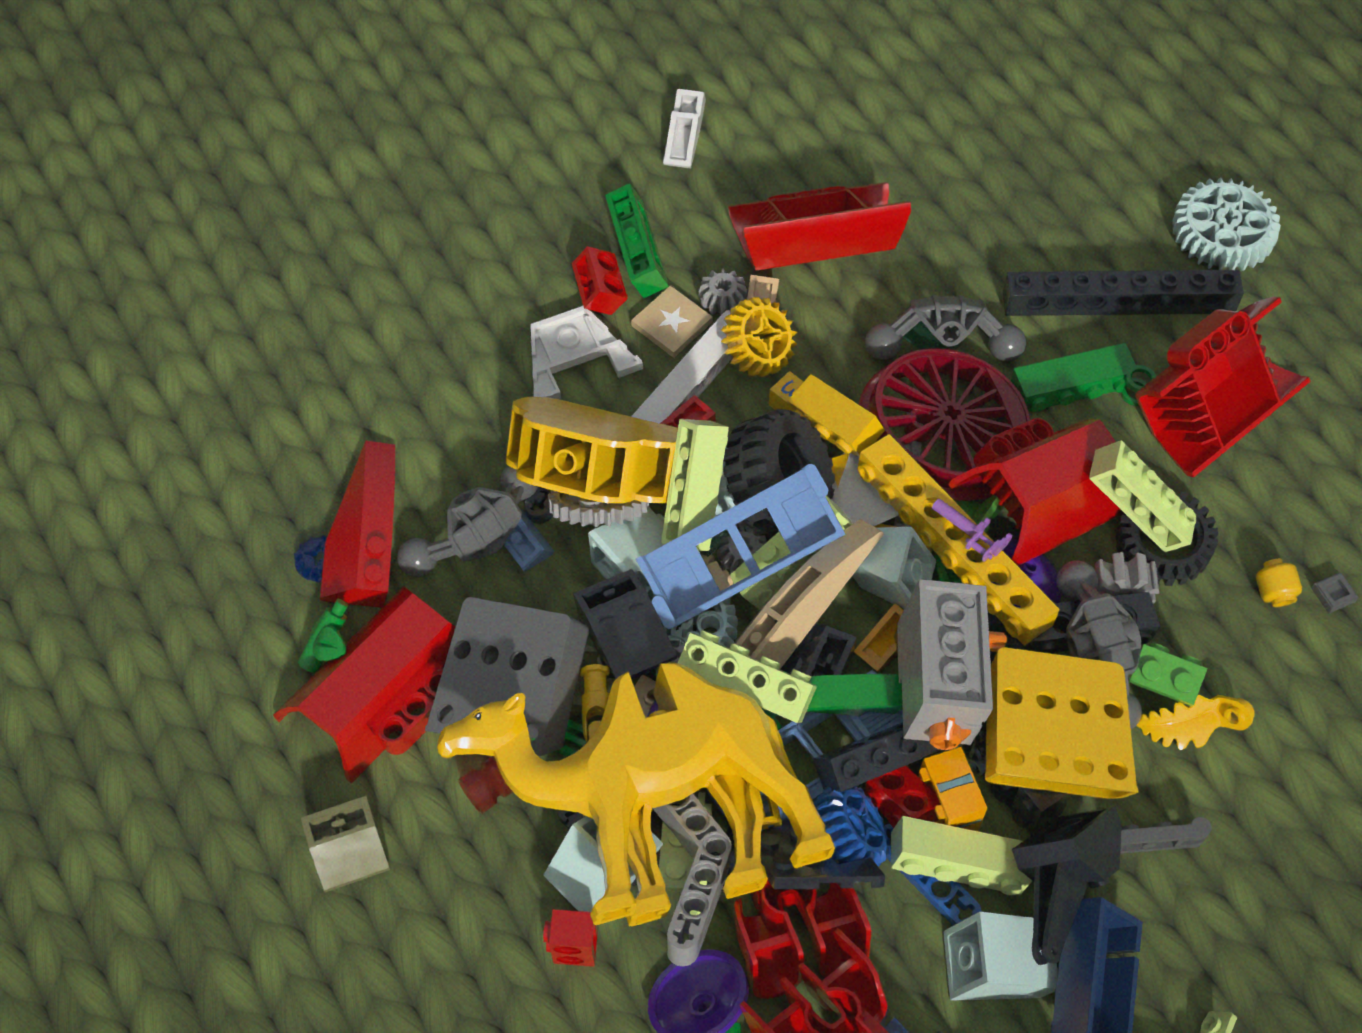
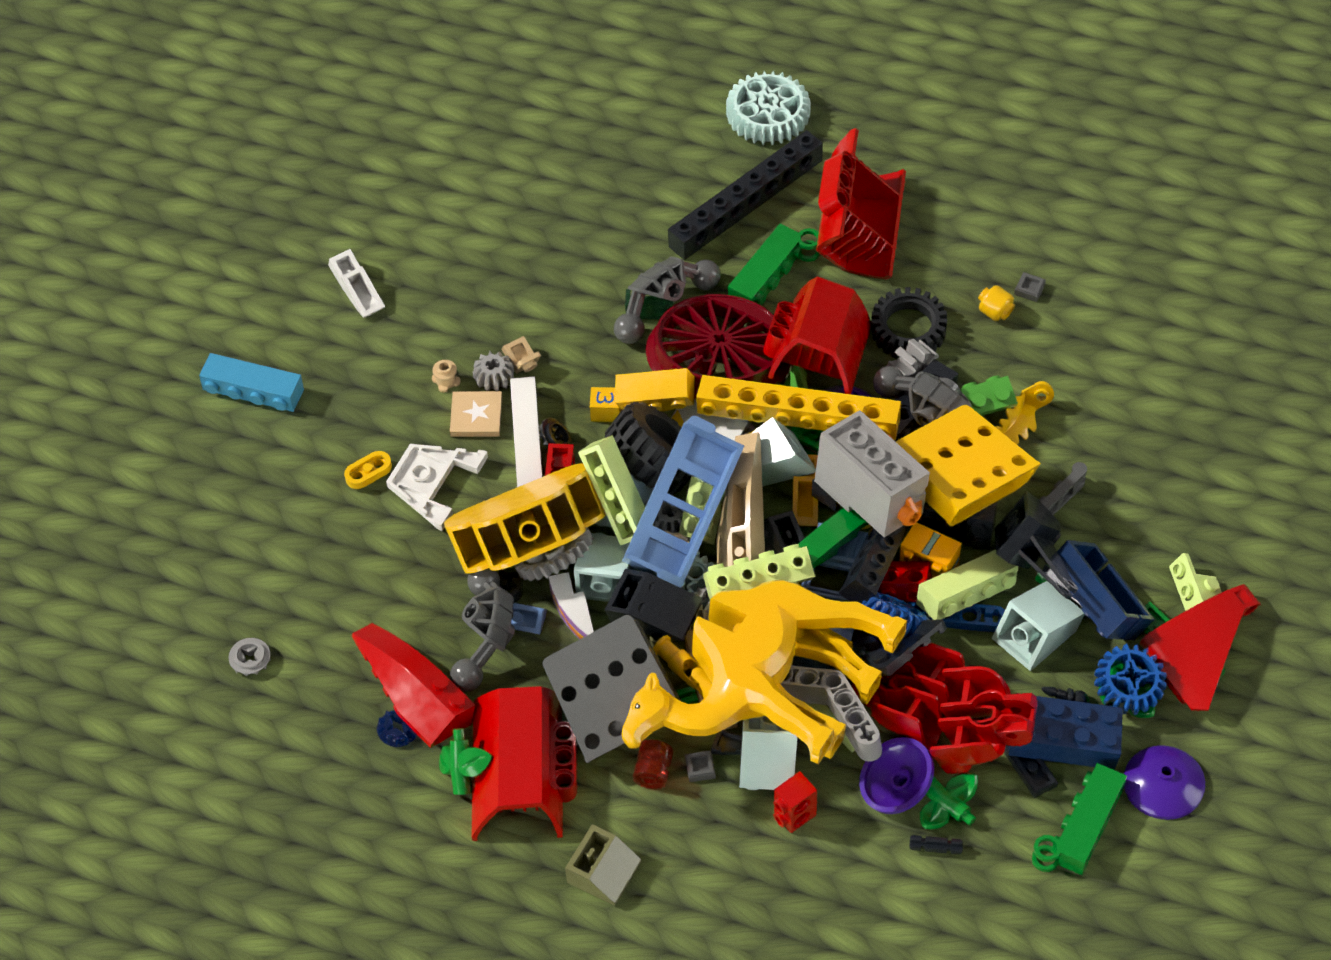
camera: 40 degrees left, 5 degrees down
(255, 393) = (249, 647): none -> light grey gear
(511, 154) = (251, 382): none -> dark azure brick
(529, 302) = (366, 469): none -> yellow plate
(535, 822) = (700, 766): none -> dark grey tile
(571, 568) = (570, 605): none -> white slope
(599, 280) = (405, 420): red brick -> none
(636, 241) = (403, 377): green brick -> none
(679, 265) = (444, 375): none -> tan brick
(725, 399) = (551, 426): none -> black gear
(752, 352) = (550, 380): yellow gear -> none
(819, 225) = (517, 283): red panel -> none
(972, 530) = (807, 393): medium lavender piece -> none
(1143, 496) = (883, 304): yellowish green brick -> none

